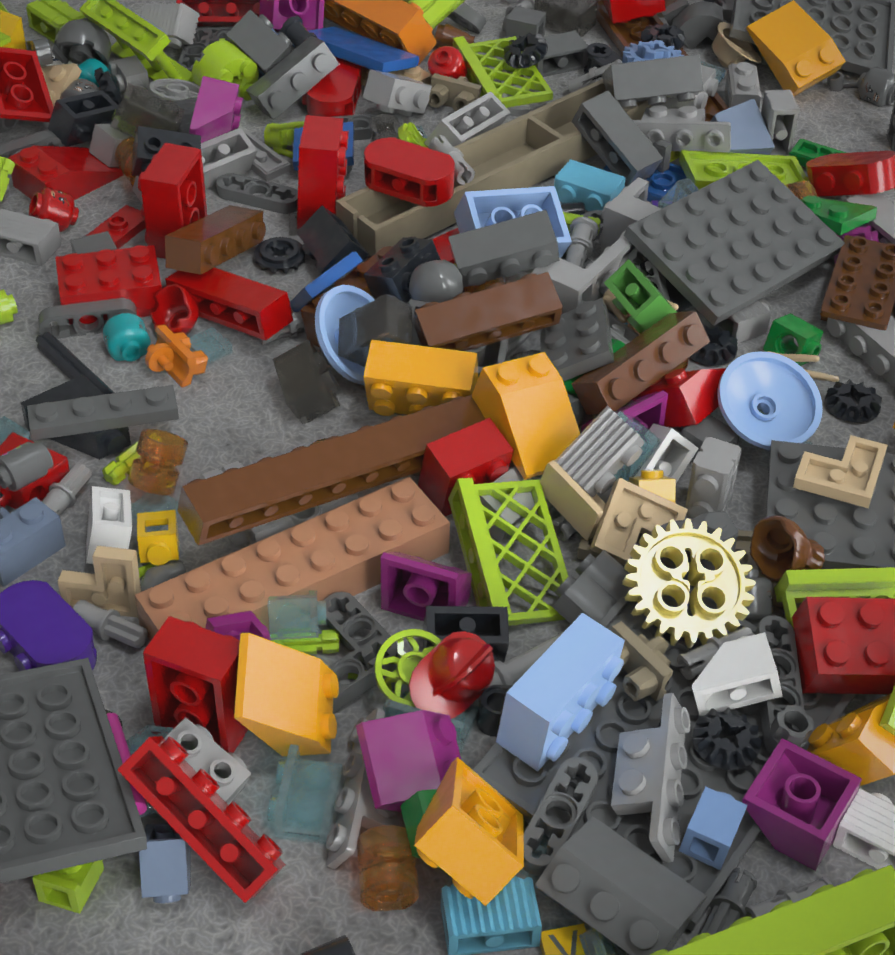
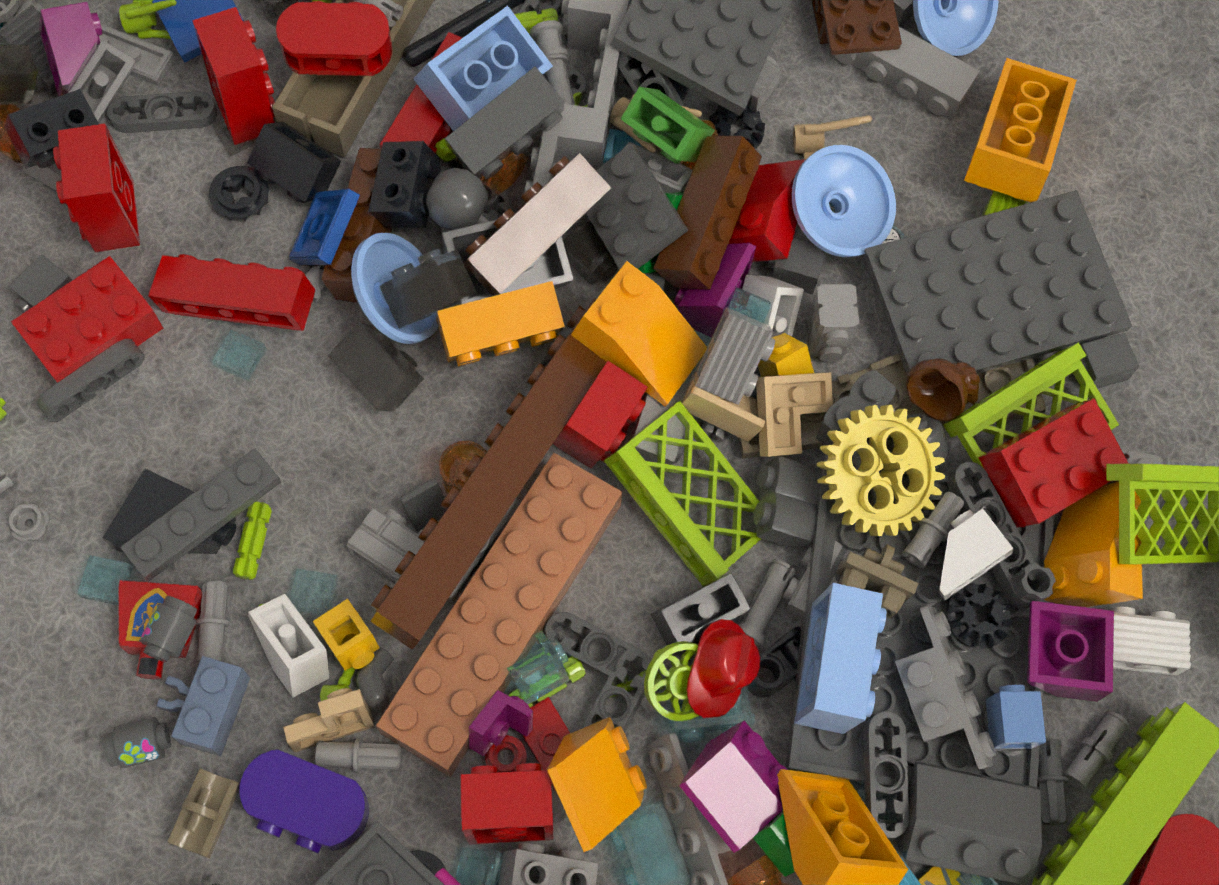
camera: 30 degrees left, 25 degrees up
(67, 361) = (122, 452): black axle -> none
(122, 225) = (38, 229): red plate -> none
(126, 335) = (149, 387): teal head -> none
(156, 467) = (292, 545): clear orange wheel -> none
(174, 356) = (214, 393): orange hips -> none
(175, 309) = (182, 333): red hair -> none
(214, 239) = (172, 218): reddish brown brick -> none
(414, 583) = (633, 569): magenta slope -> none
(782, 335) = (816, 94): green brick -> none
(843, 407) = (895, 156): black gear -> none
(844, 480) = (964, 276): tan plate -> none

